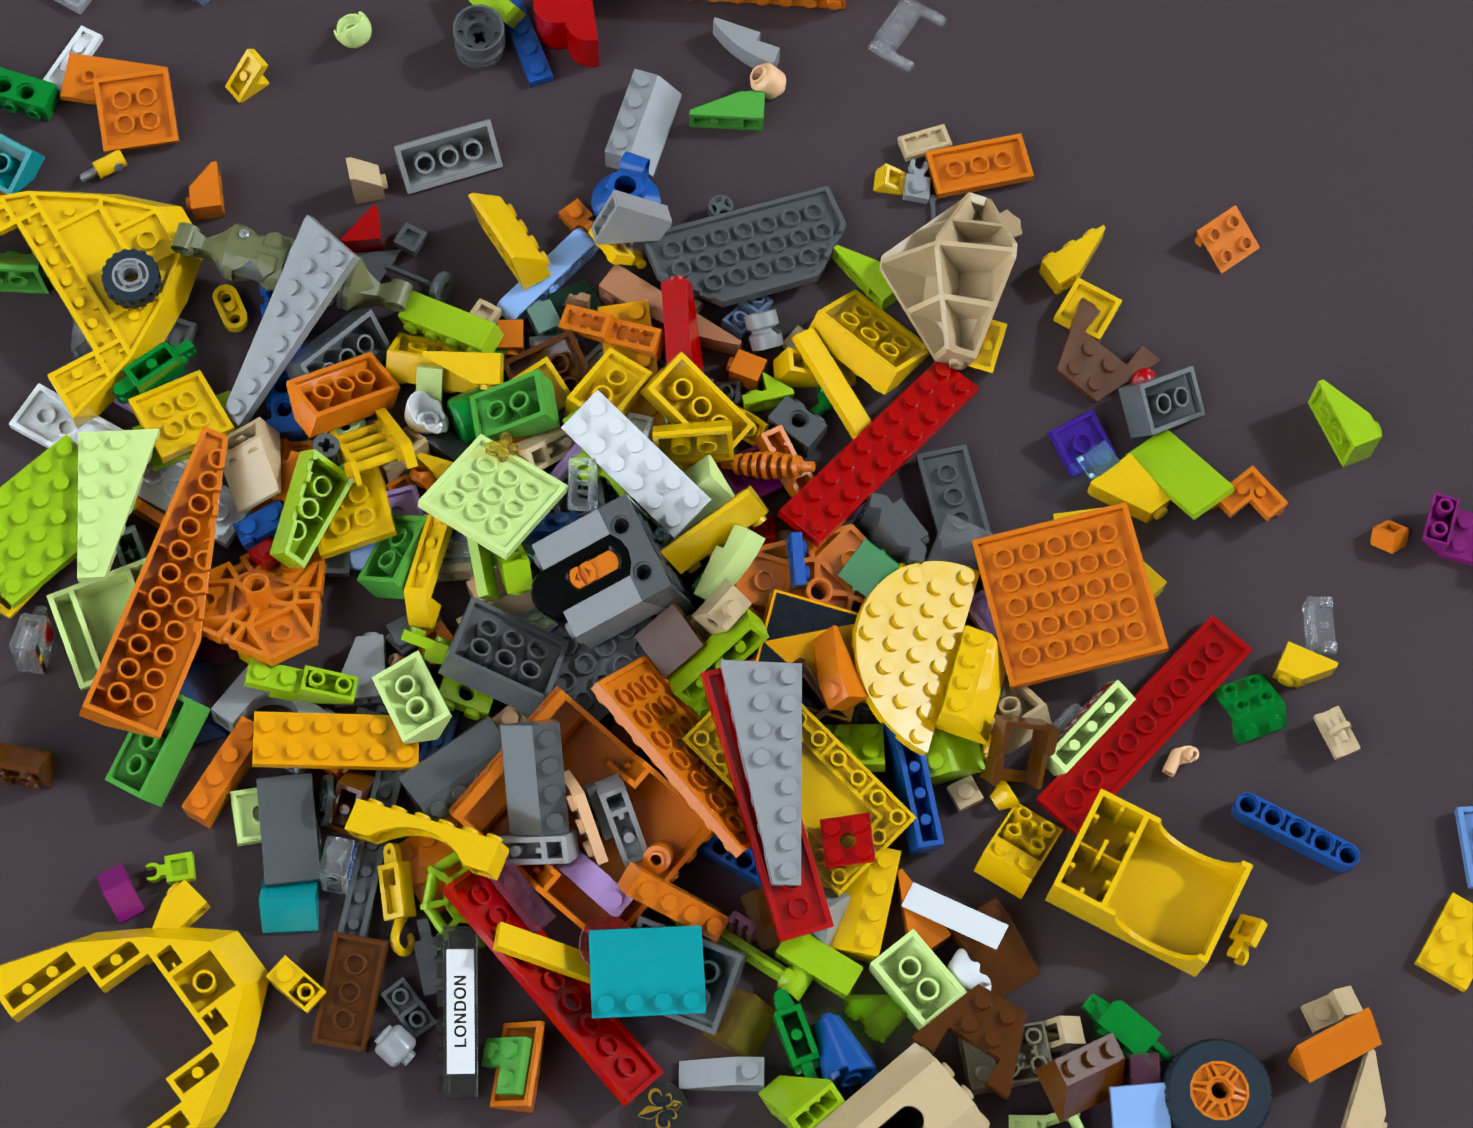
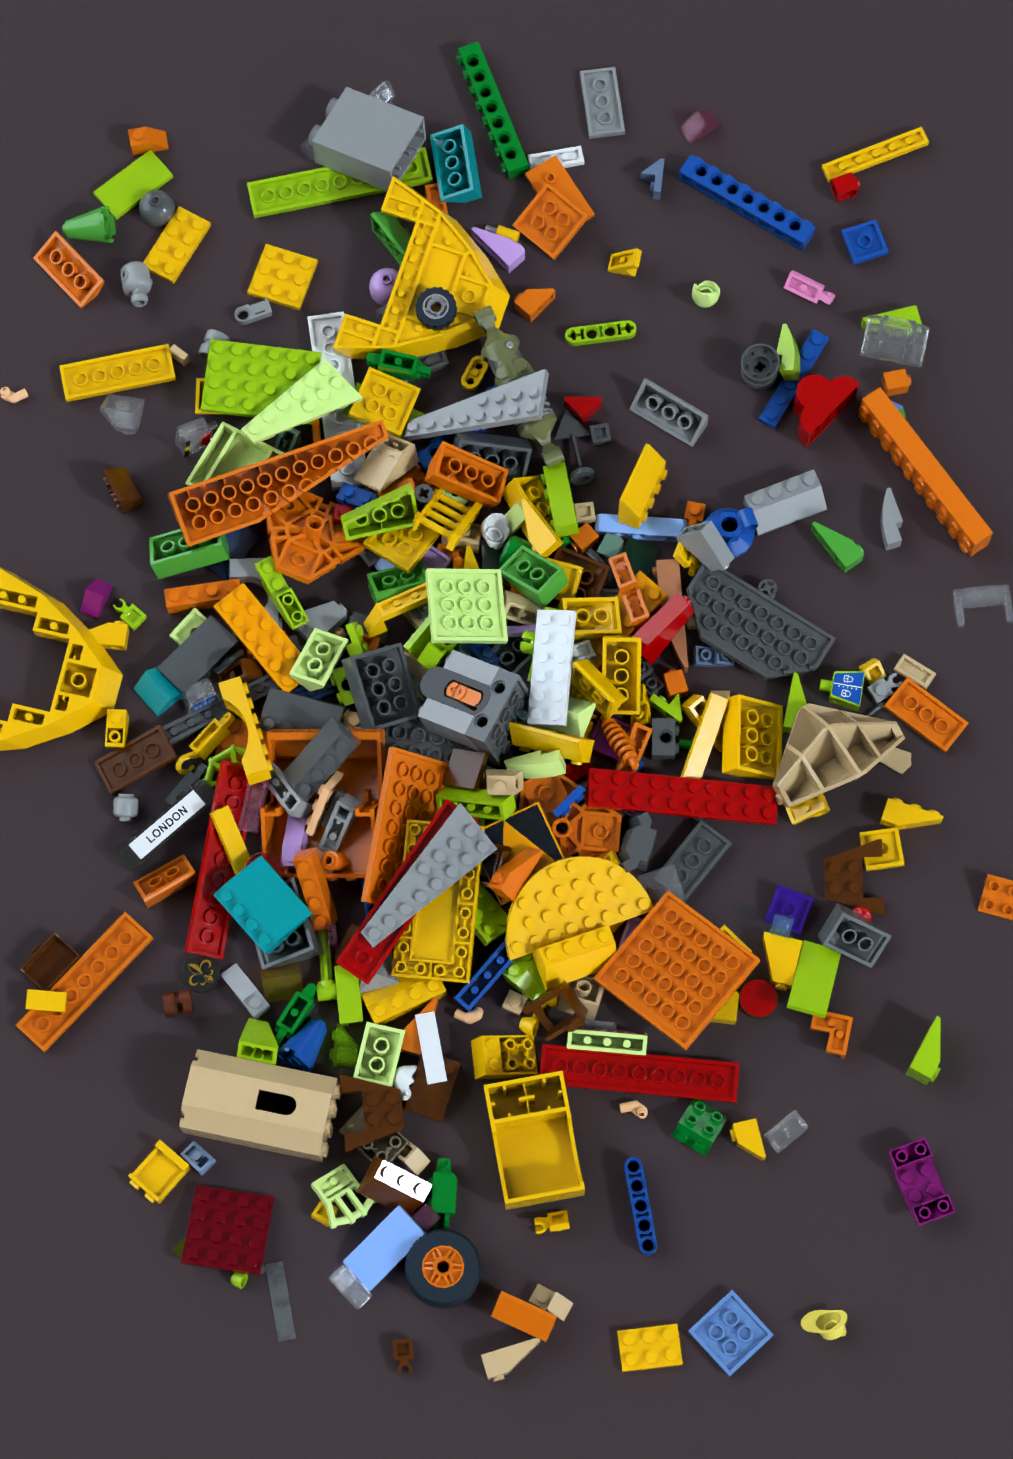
camera: 55 degrees right, 5 degrees up
(50, 322) = (382, 285): none -> lavender cylinder
(124, 177) = (502, 249): none -> lavender slope
(298, 157) = (600, 331): none -> lime beam
(366, 181) = (613, 380): tan slope -> none
(408, 1007) = (152, 797): dark grey slope -> none
(502, 448) = (500, 588): clear yellow piece -> none
(512, 1058) = (165, 871): bright green plate -> none
(573, 491) = (504, 652): clear slope -> none
(580, 300) = (637, 557): medium nougat tile -> none
(763, 330) = (707, 672): light grey wheel -> none
(768, 79) = (875, 550): light nougat head -> none
(838, 827) = (421, 943): red piece -> none
(867, 568) = (600, 844): green piece -> none
(890, 217) = (845, 688): none -> torso
(944, 854) = (469, 1017): none -> light nougat arm
(1158, 544) = (758, 999): none -> red tile
(1337, 732) = (722, 1187): tan hips -> none
(1389, 536) = (879, 1132): orange slope -> none

